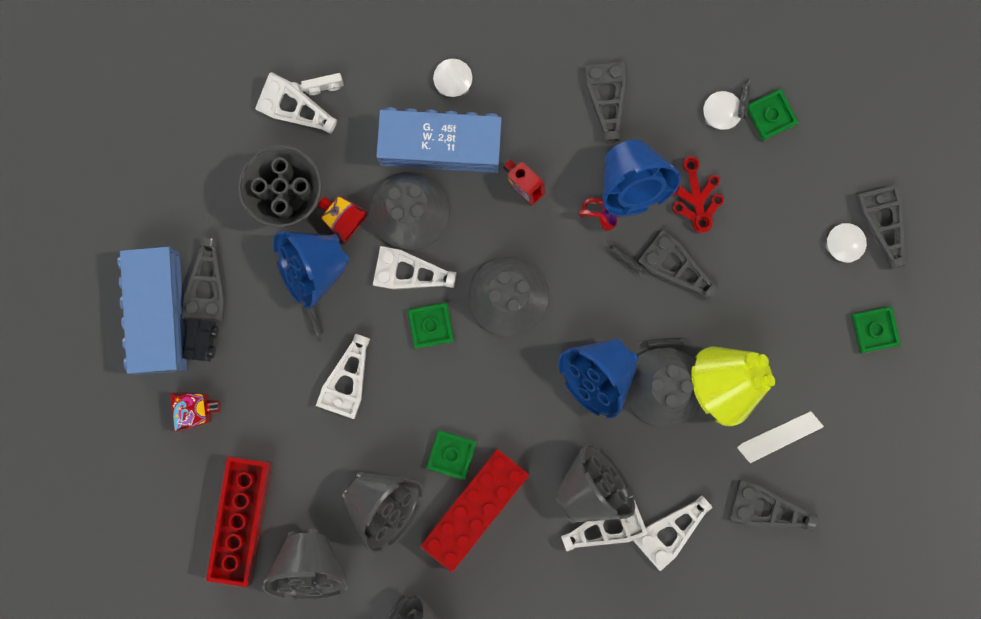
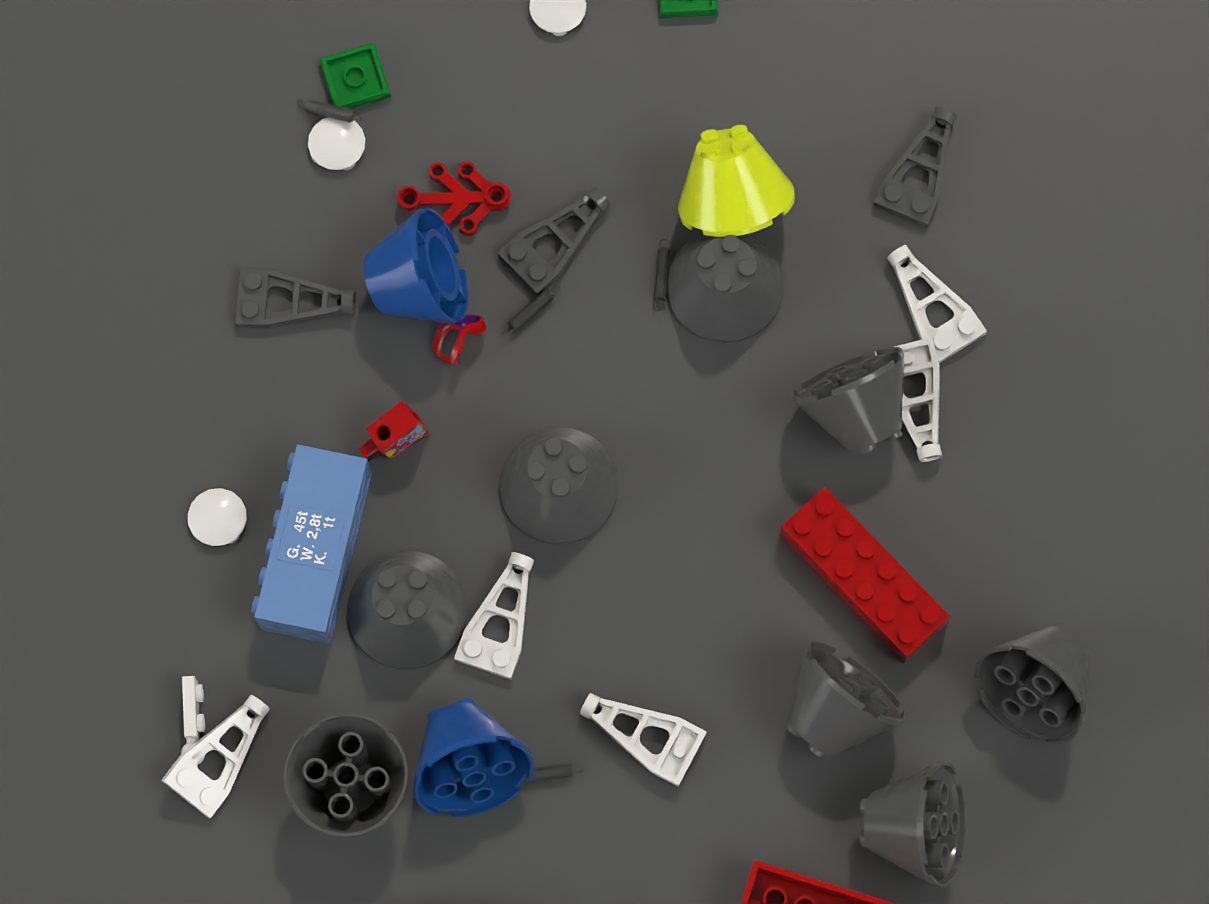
camera: 80 degrees left, 10 degrees down
(342, 217) = (402, 705): red torso -> none
(430, 325) = (584, 603): green tile -> none
(451, 455) = (780, 600): green tile -> none
(599, 375) = (698, 368): blue cone -> none
(779, 437) = (819, 141): white sticker -> none

